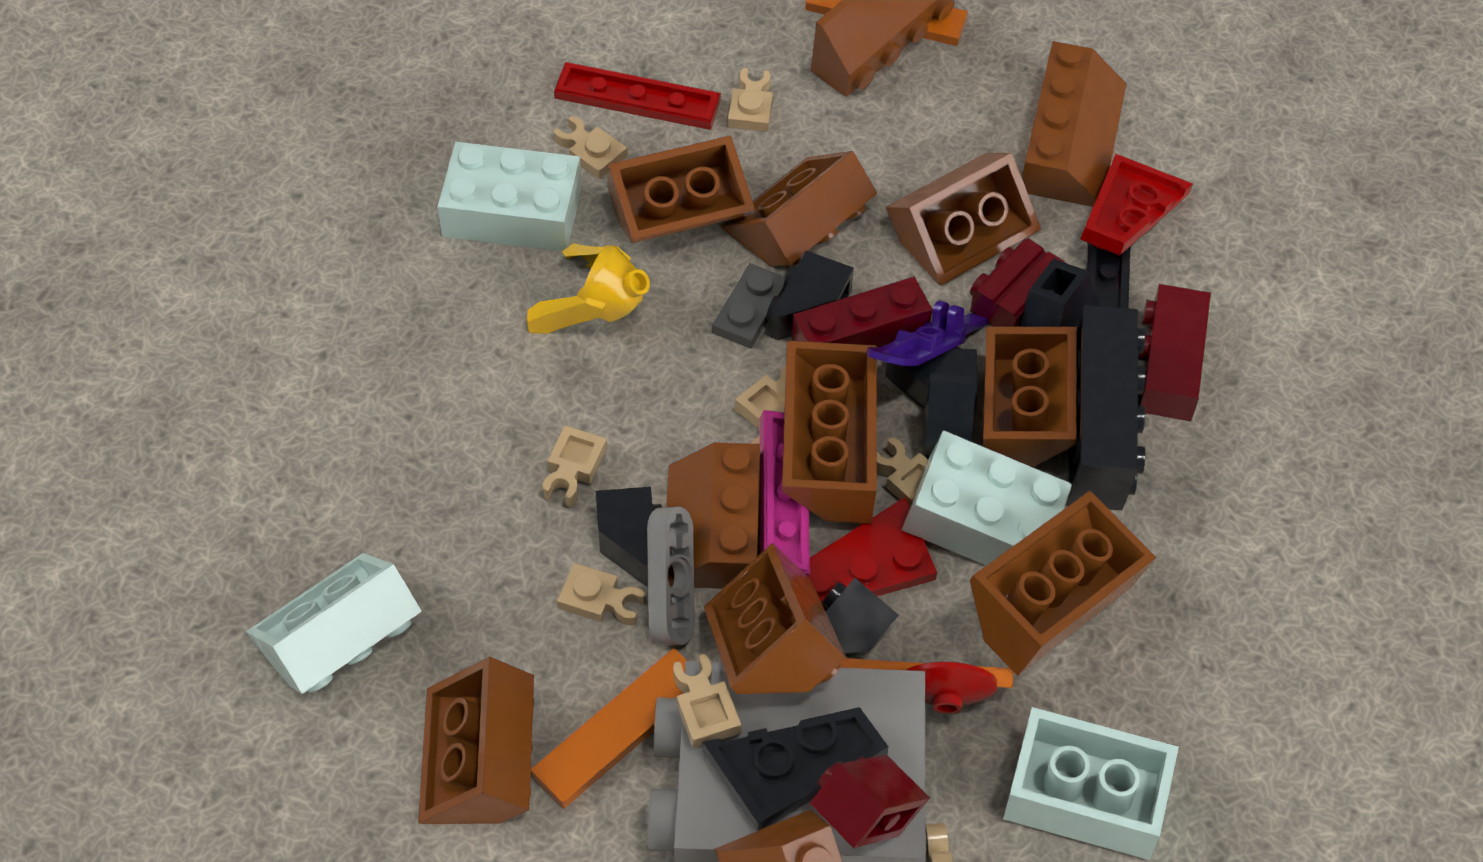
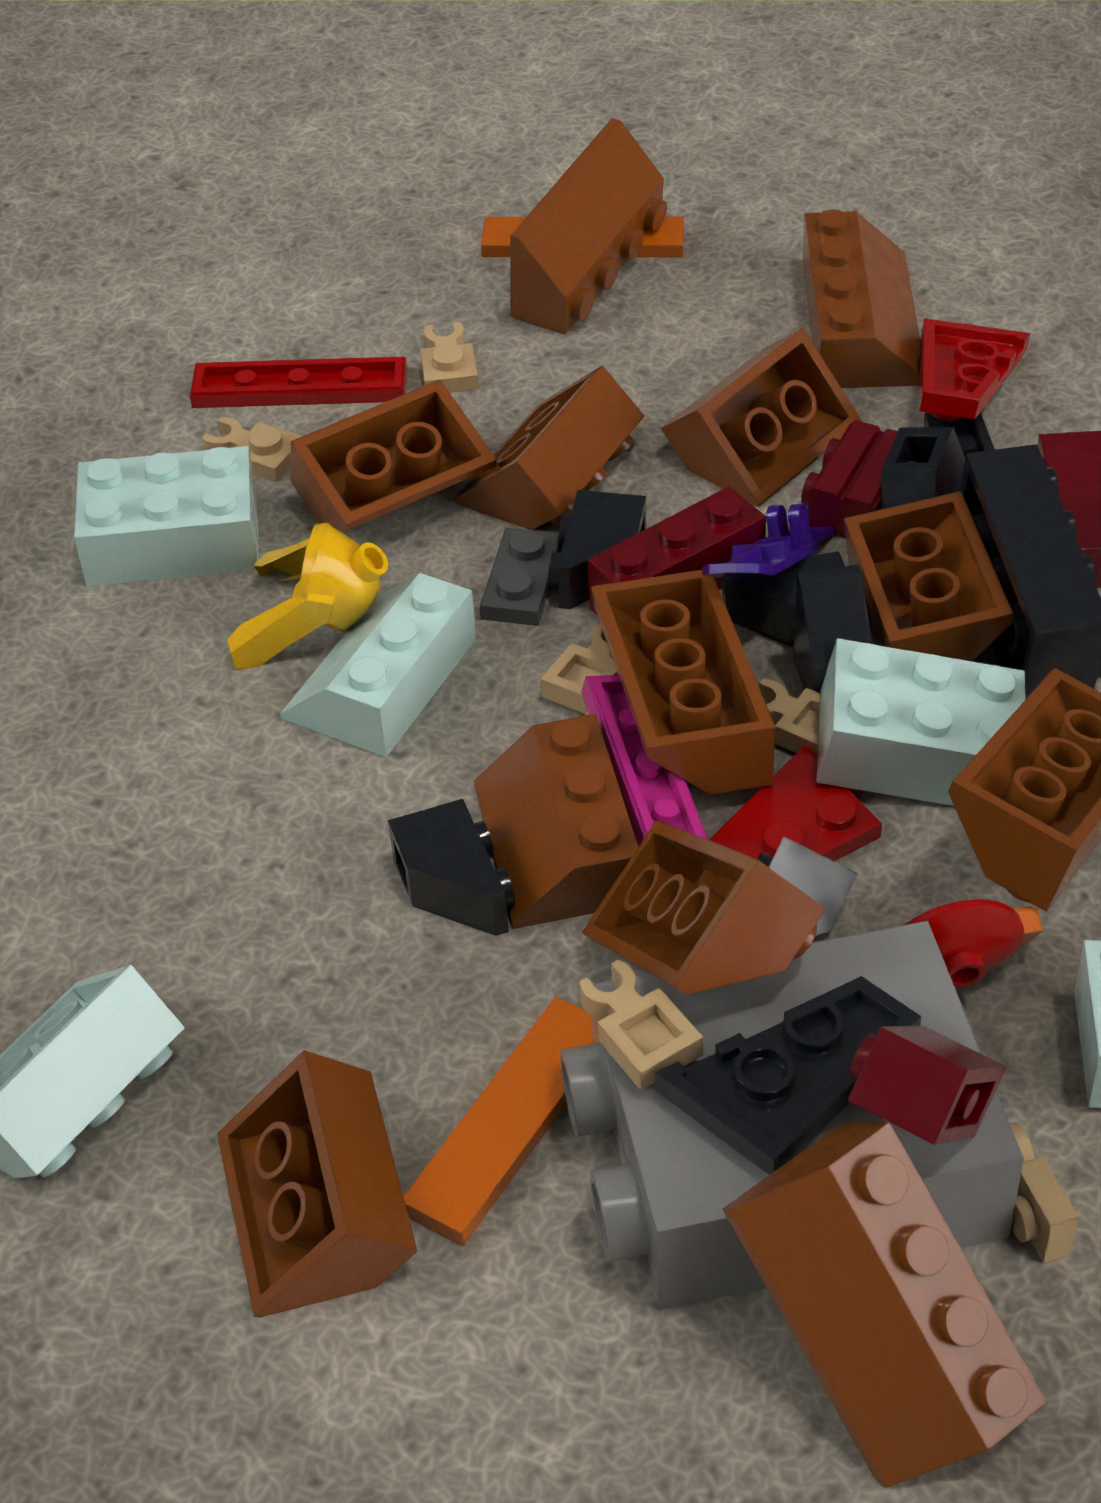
camera: 10 degrees left, 10 degrees down
(573, 459) = (341, 800): tan plate -> none
(595, 592) = (422, 955): tan plate -> none
(632, 359) = (388, 665): none -> light aqua slope
(669, 621) = (535, 929): light grey beam -> none

